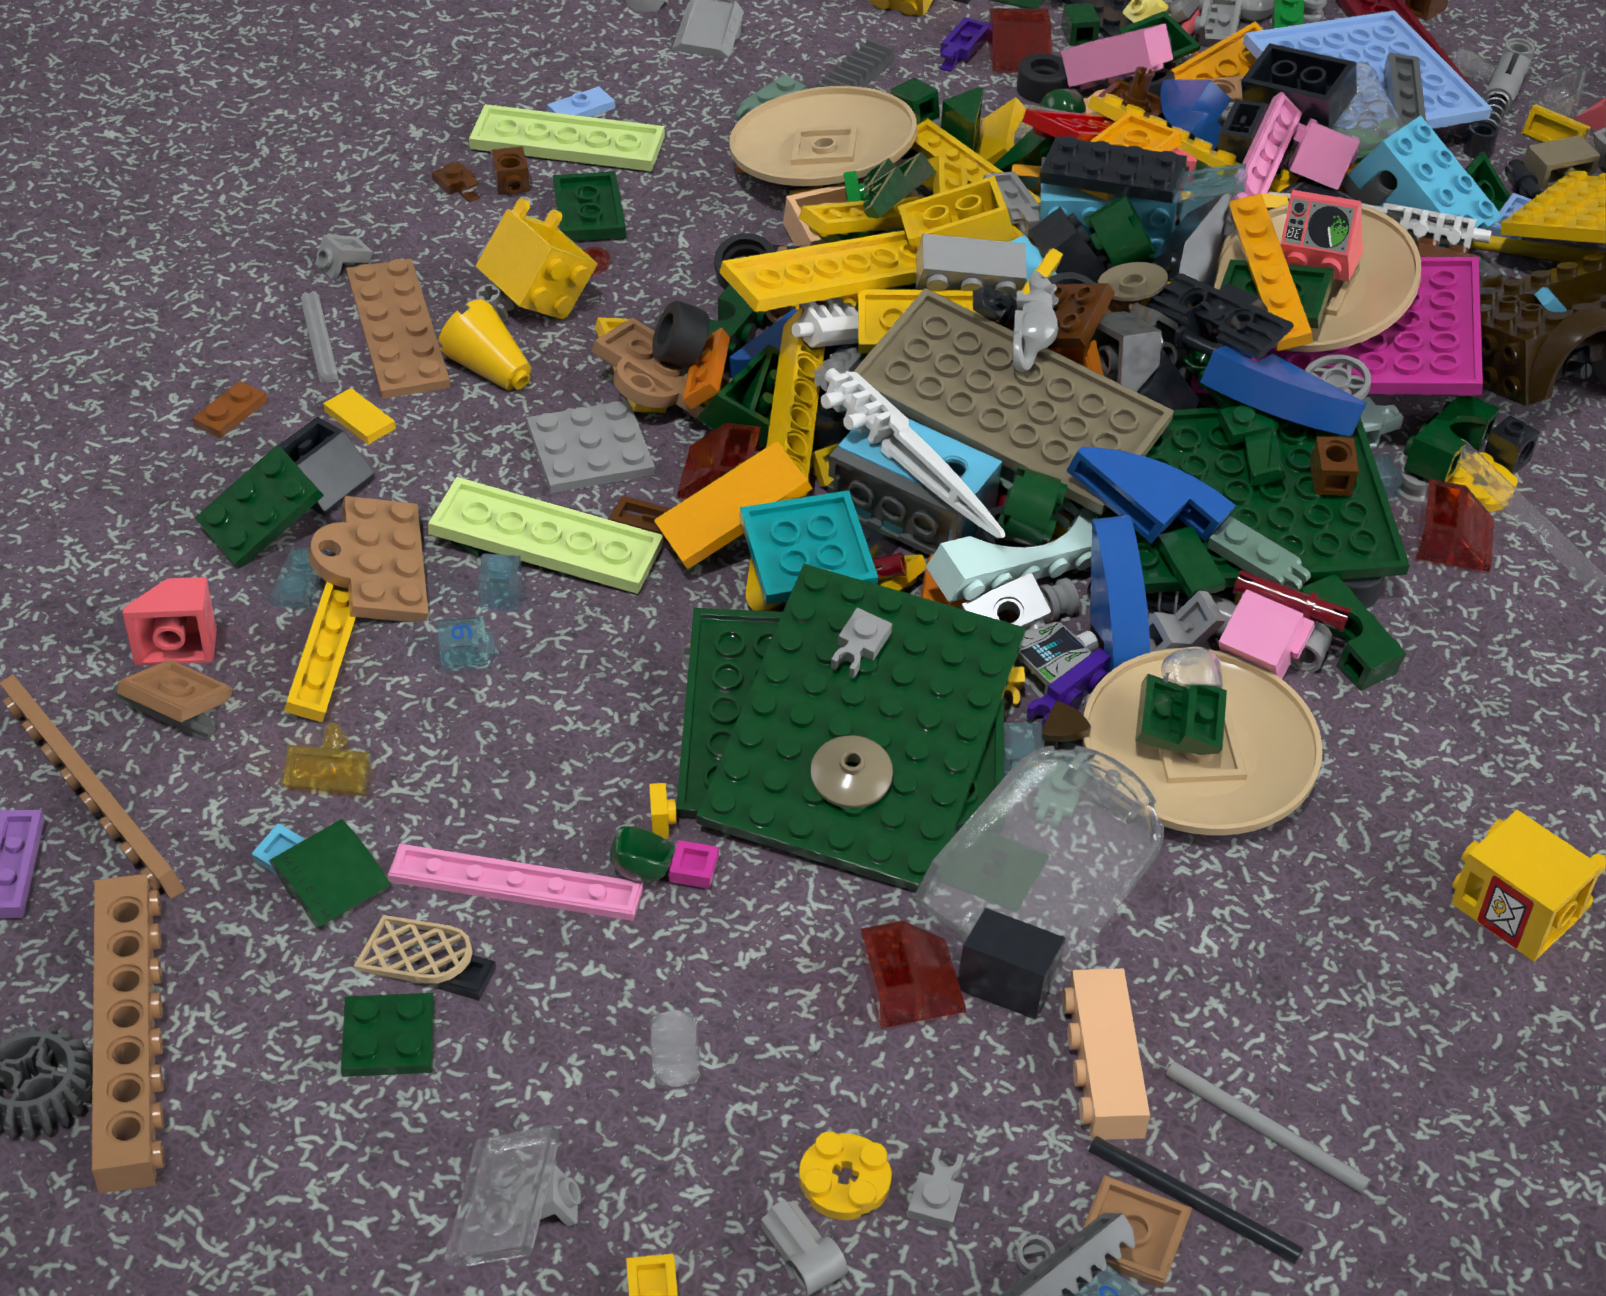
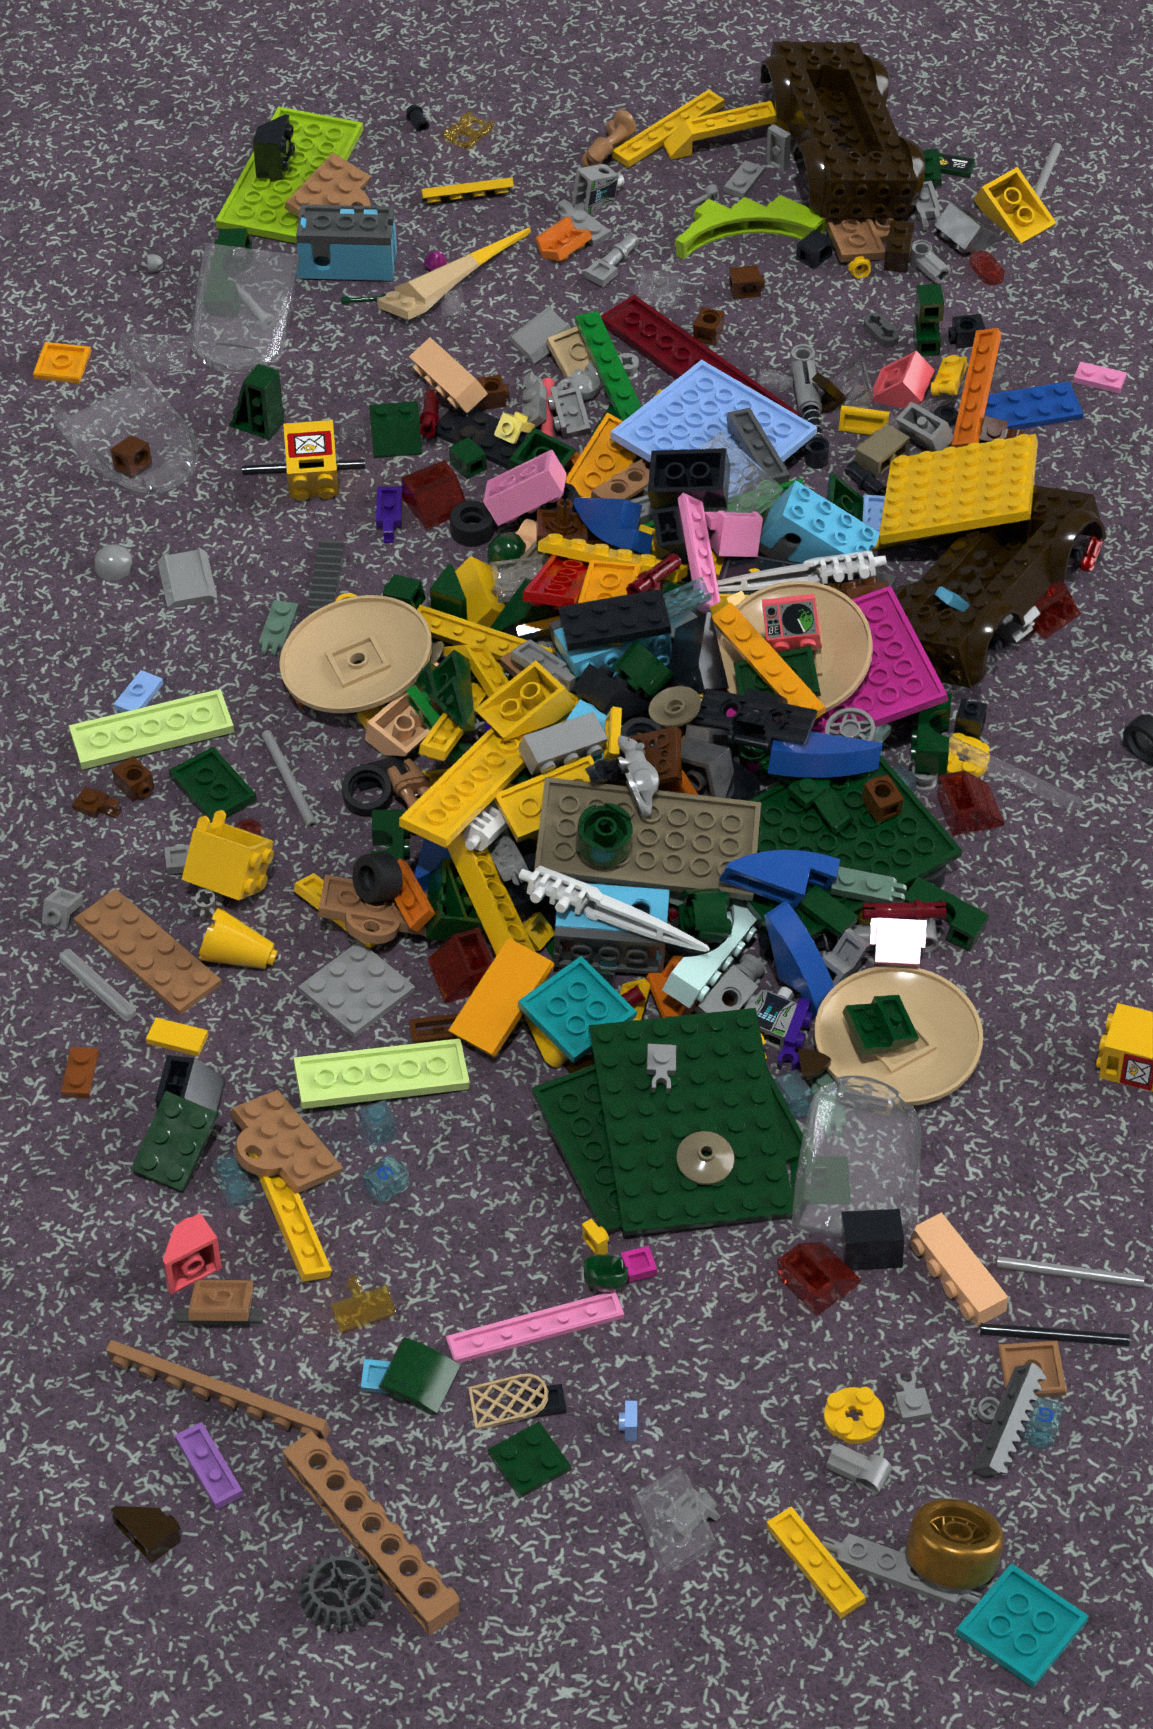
camera: 25 degrees left, 5 degrees up
(543, 1044) = (628, 1421): none -> light blue plate
(675, 231) = (288, 778): none -> light grey piece
(675, 1048) = (712, 1386): clear gear -> none
(950, 365) = (604, 835): none -> dark green brick
(1192, 667) = (873, 989): clear hair -> none
(1195, 148) = (648, 579): none -> dark red pin
(1532, 88) = (832, 395): none -> dark brown tile

